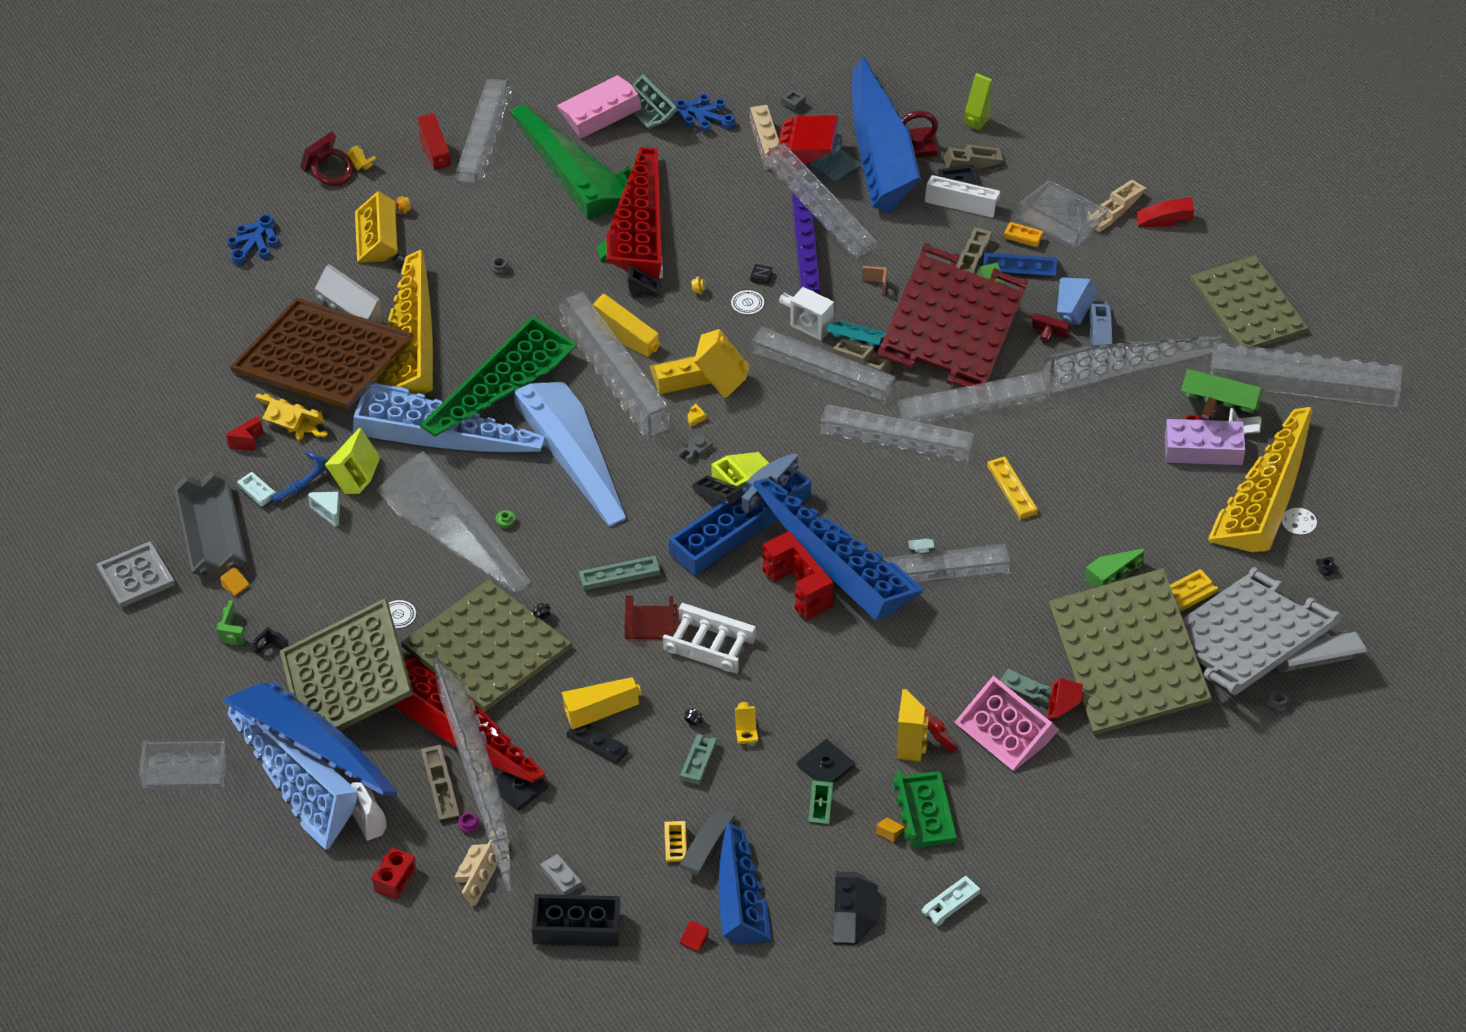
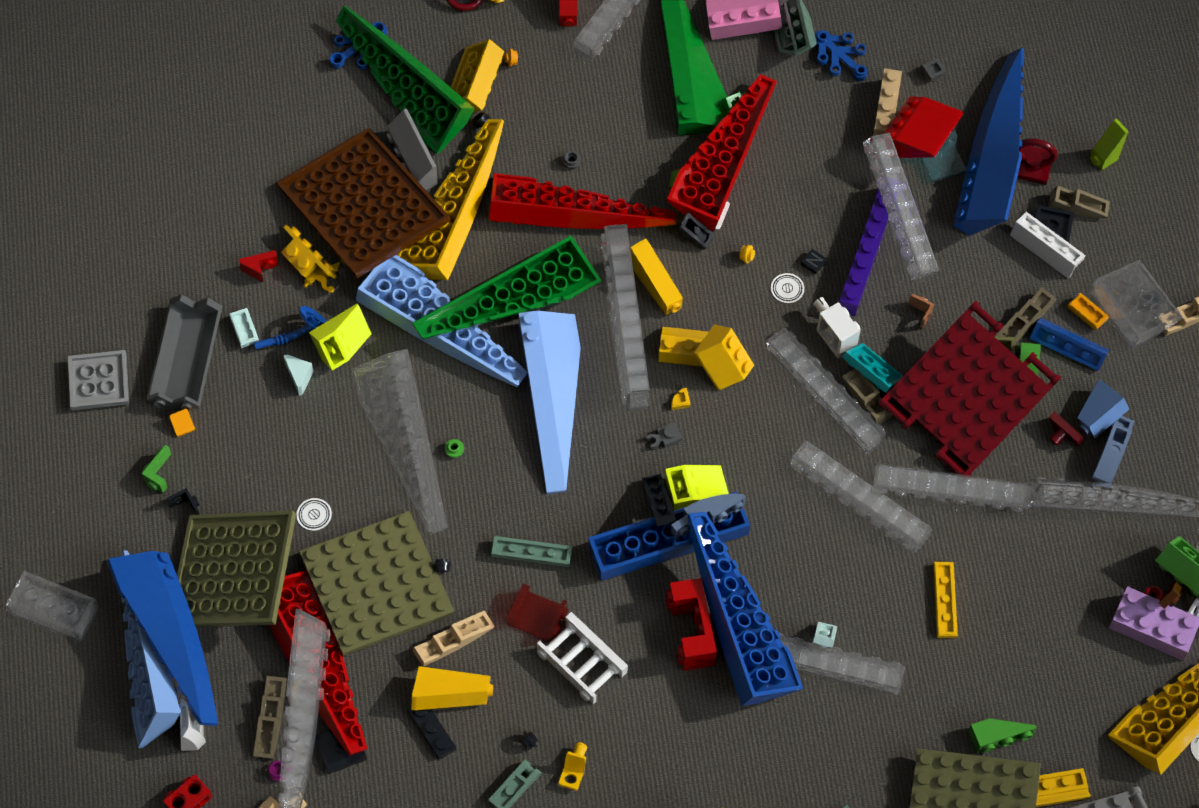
camera: 20 degrees right, 15 degrees up
(314, 248) = (431, 103): none -> green wedge
(474, 309) = (542, 204): none -> red wedge
(582, 663) = (453, 638): none -> tan slope

